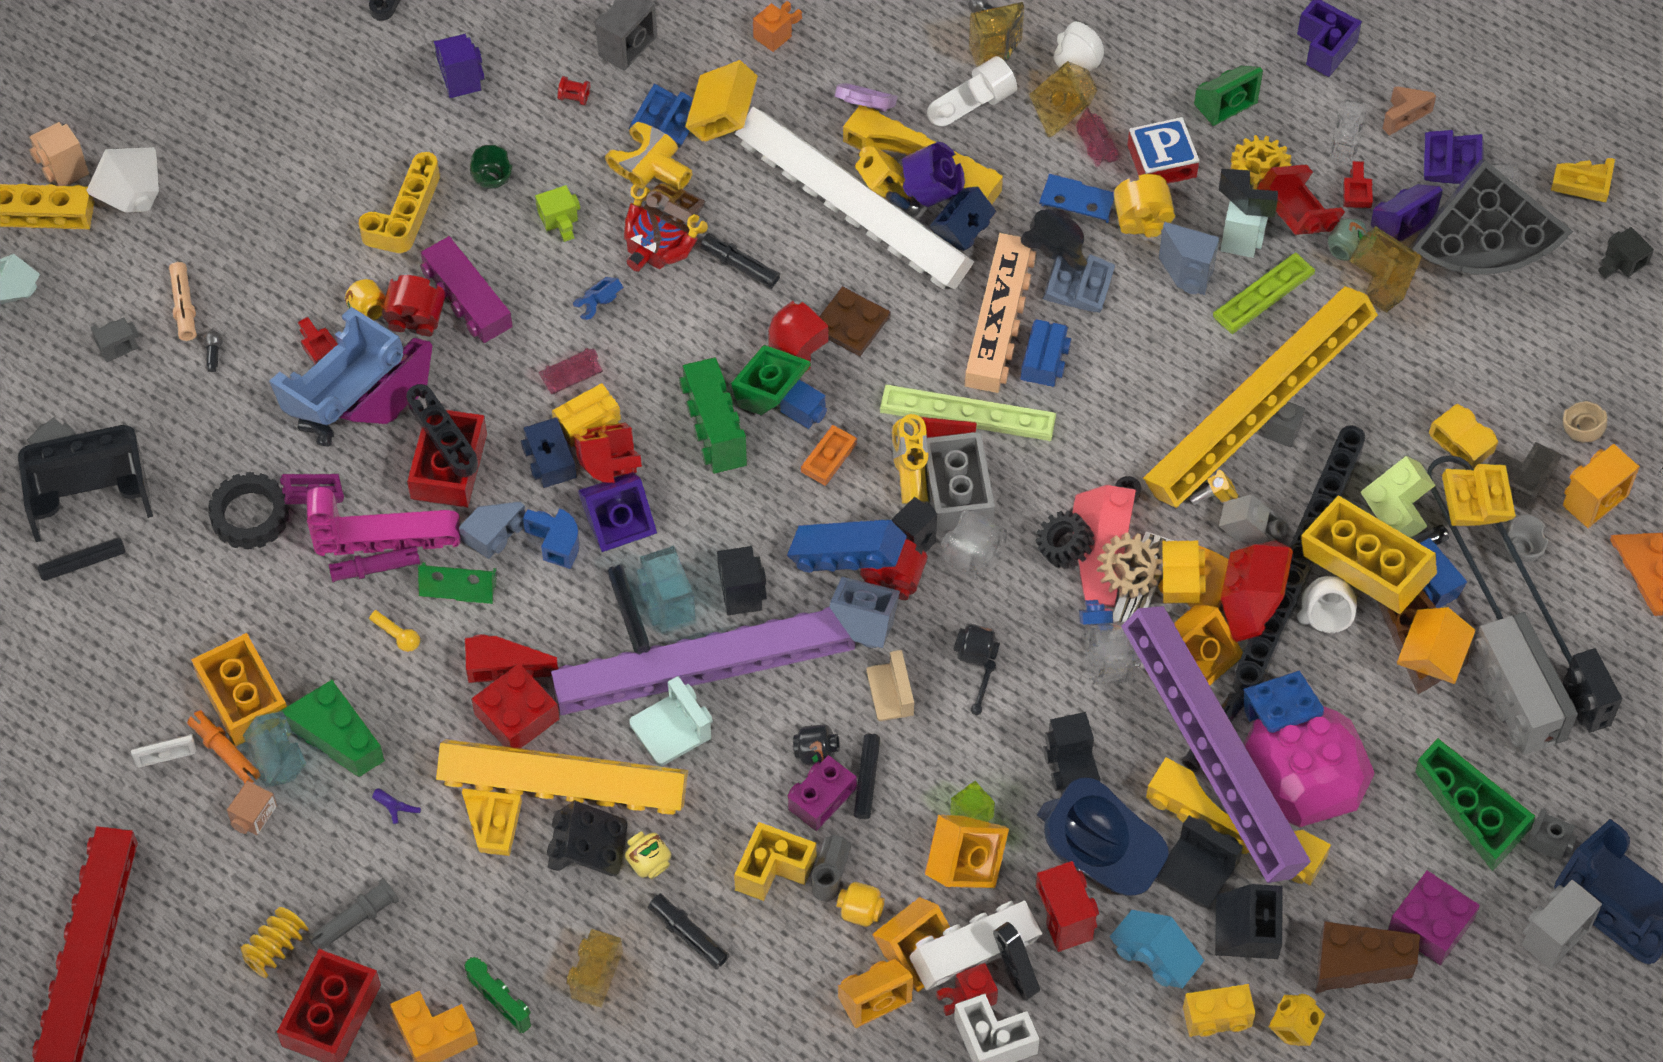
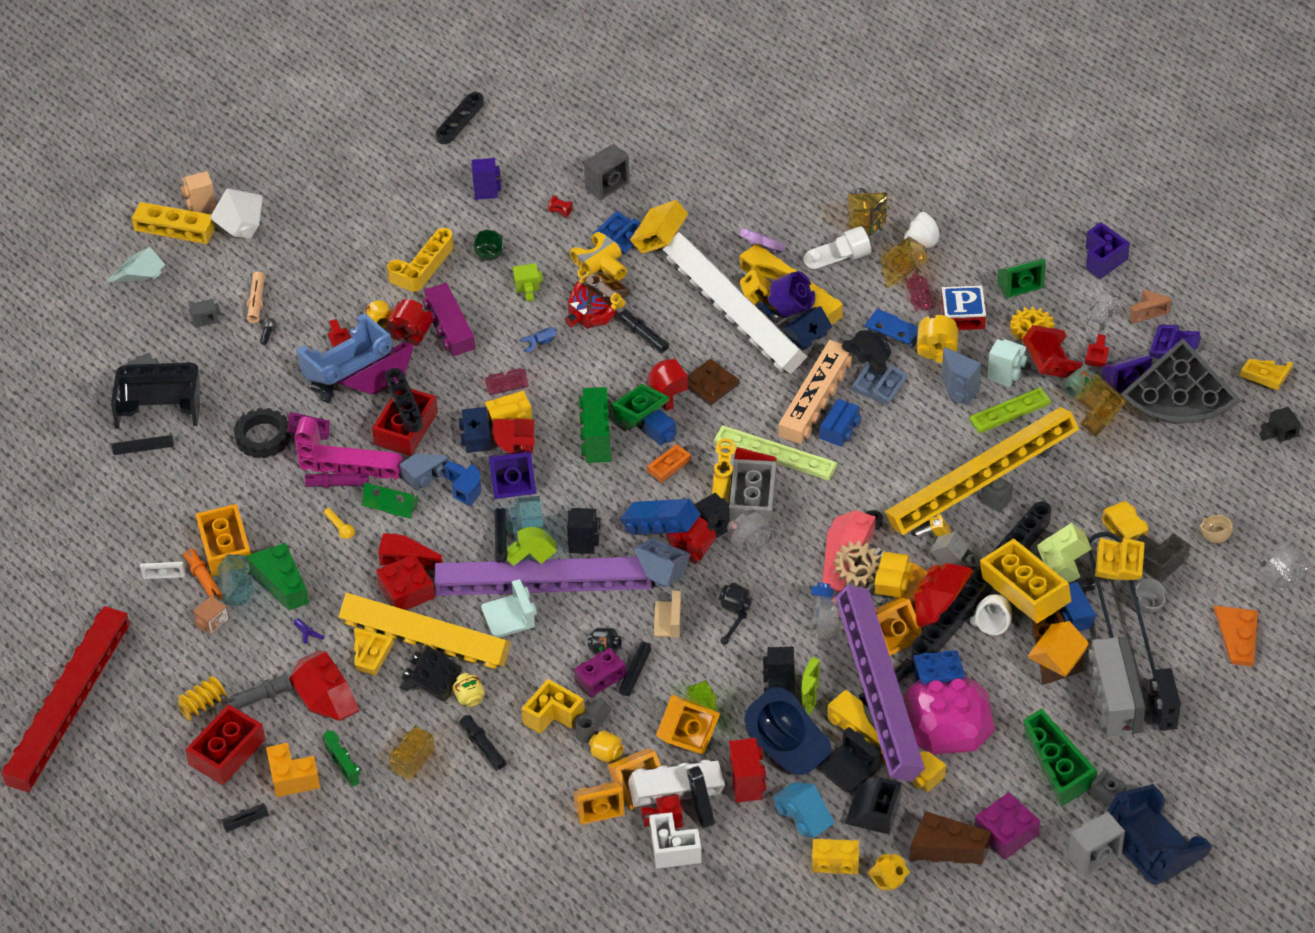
camera: 15 degrees right, 10 degrees down
(440, 887) = (323, 686): none -> red wedge
(680, 618) = (532, 541): none -> lime brick
(774, 25) = (711, 186): orange brick -> none
(1055, 530) = (817, 541): black tyre -> none
(1117, 761) = (810, 683): none -> lime slope
(1253, 202) = (1009, 342): black slope -> none
(1600, 485) = (1212, 569): light orange brick -> none

